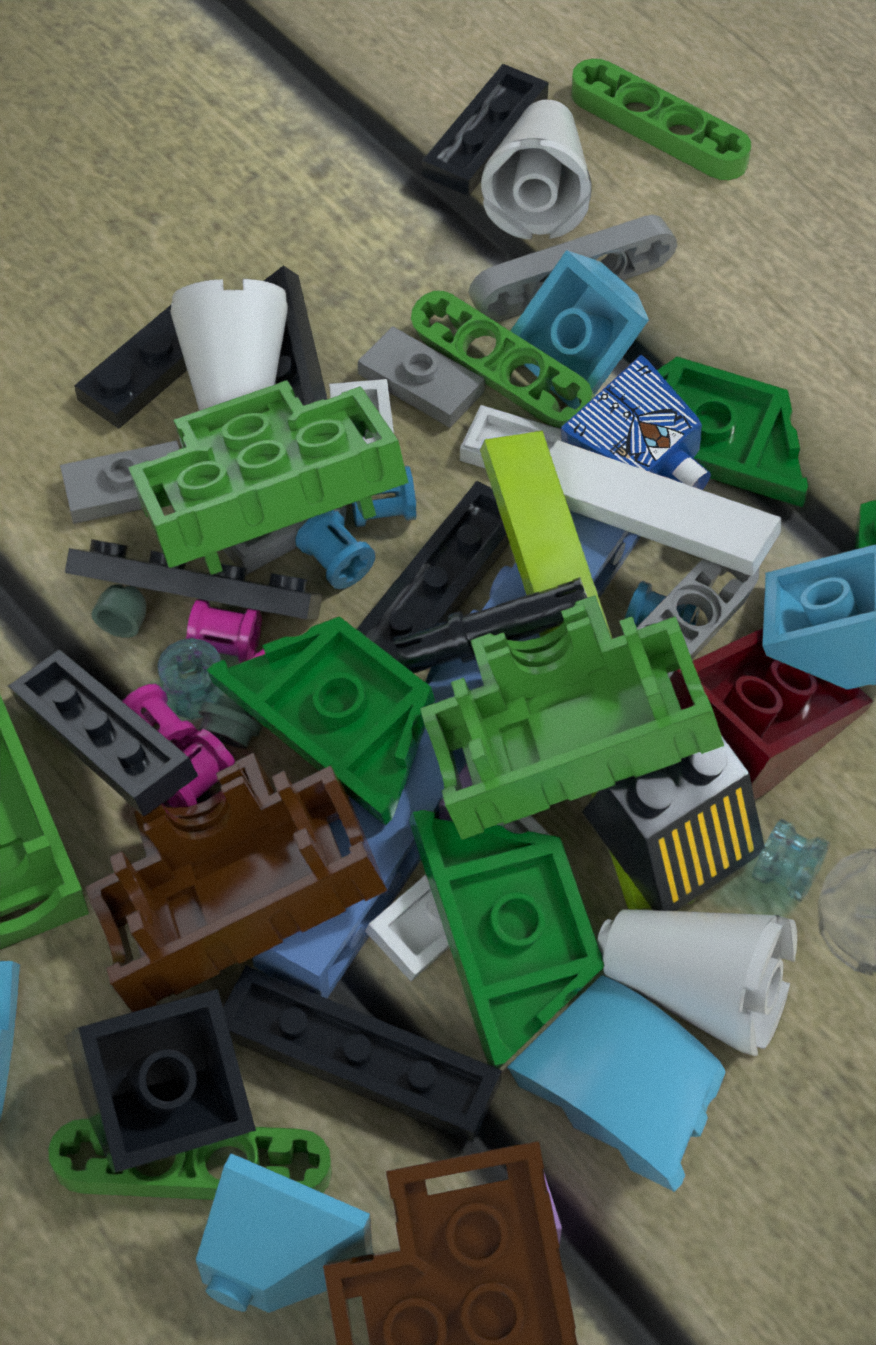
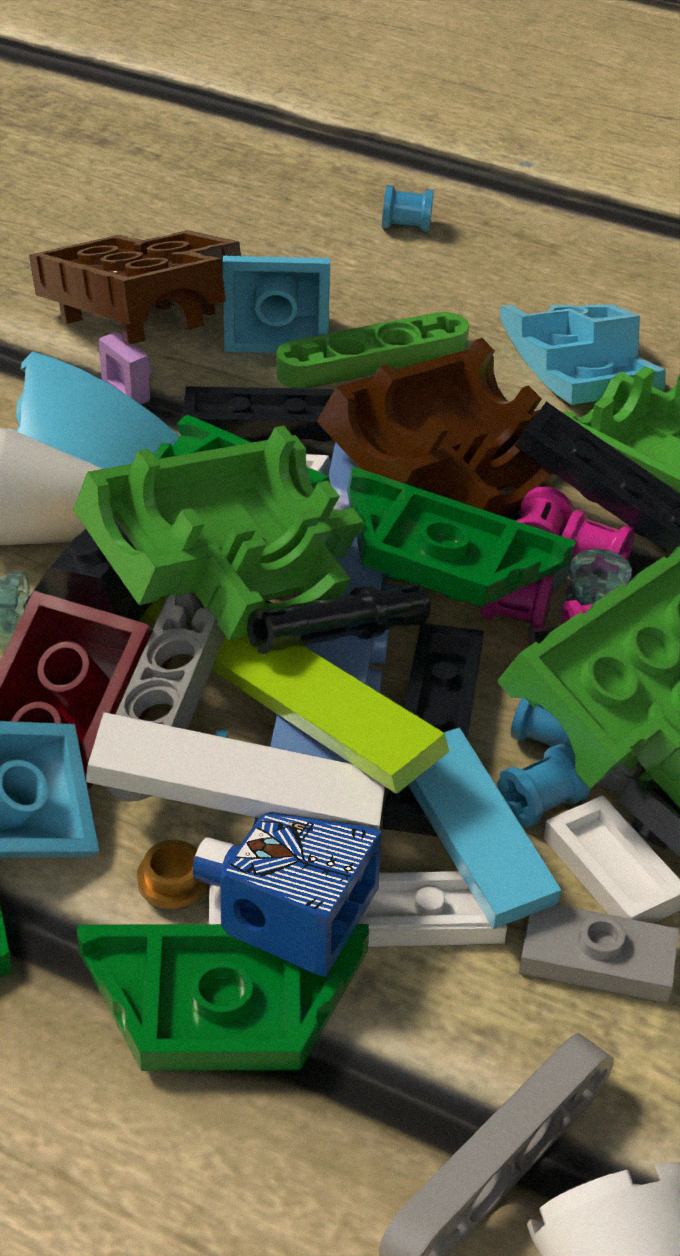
camera: 155 degrees right, 15 degrees down
(160, 1080) = (416, 330): black slope -> none
(462, 423) = (484, 836): none -> medium azure tile
(499, 365) = (587, 1002): bright green beam -> none
(582, 319) = (436, 1058): medium azure slope -> none

